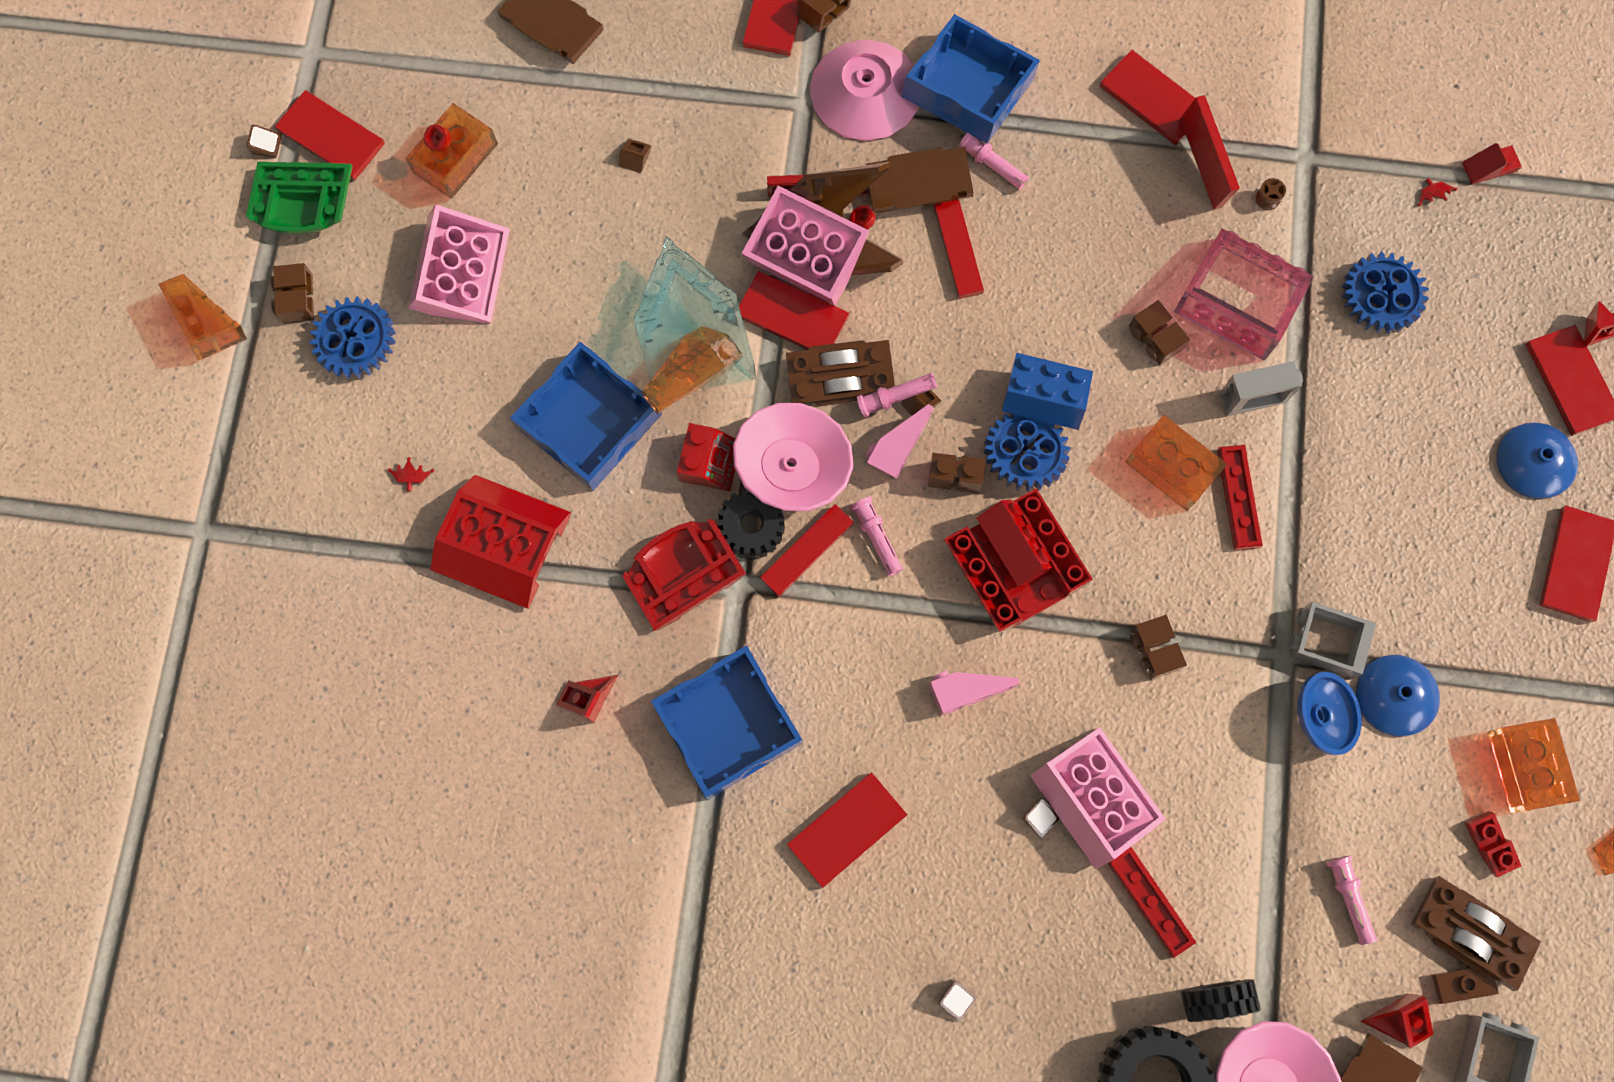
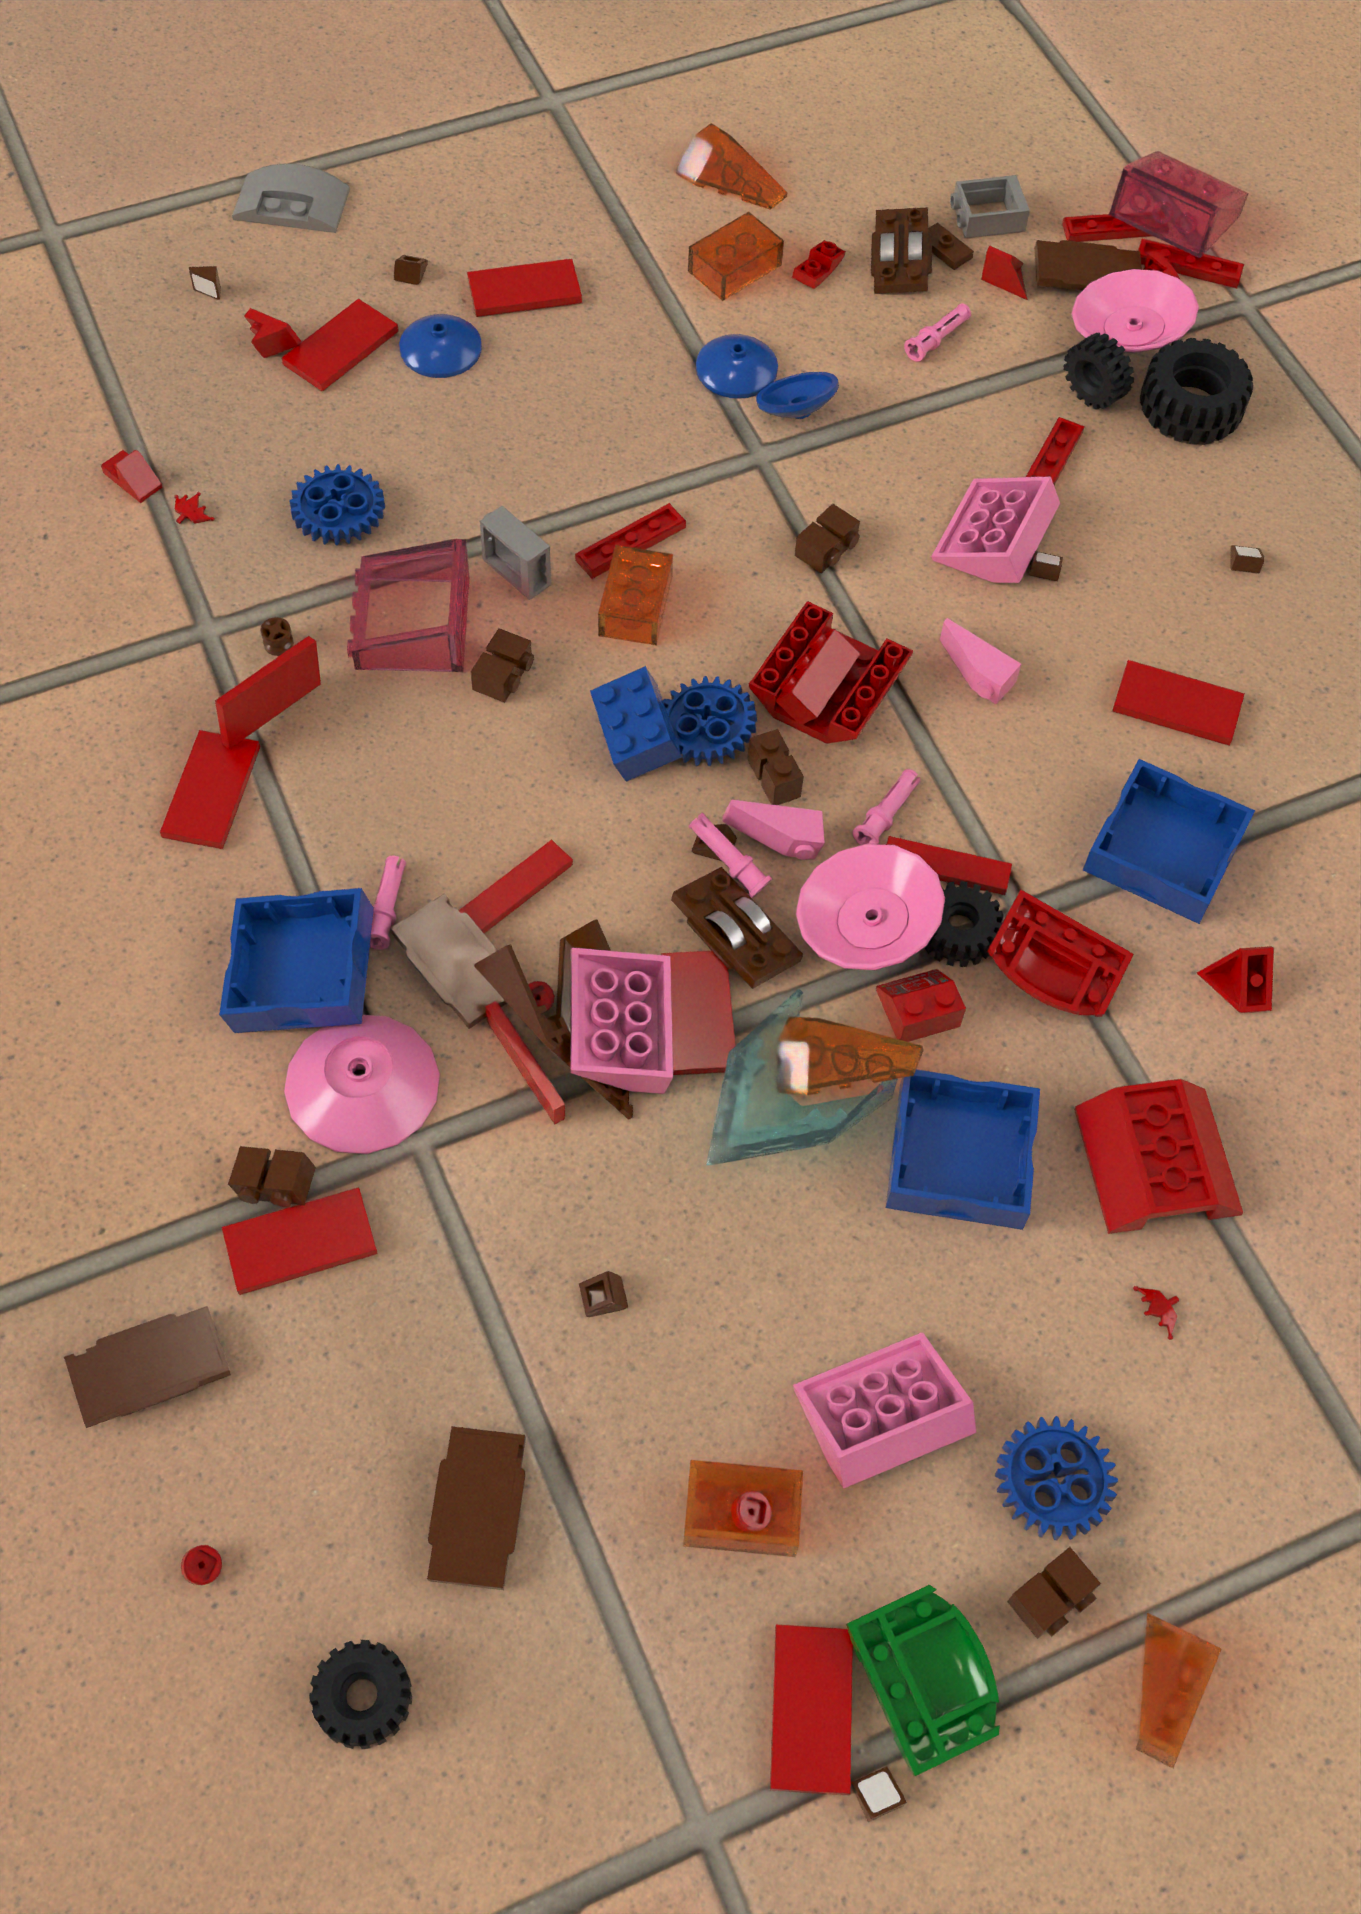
camera: 125 degrees left, 15 degrees down
(1359, 647) = (735, 397): light grey window -> none

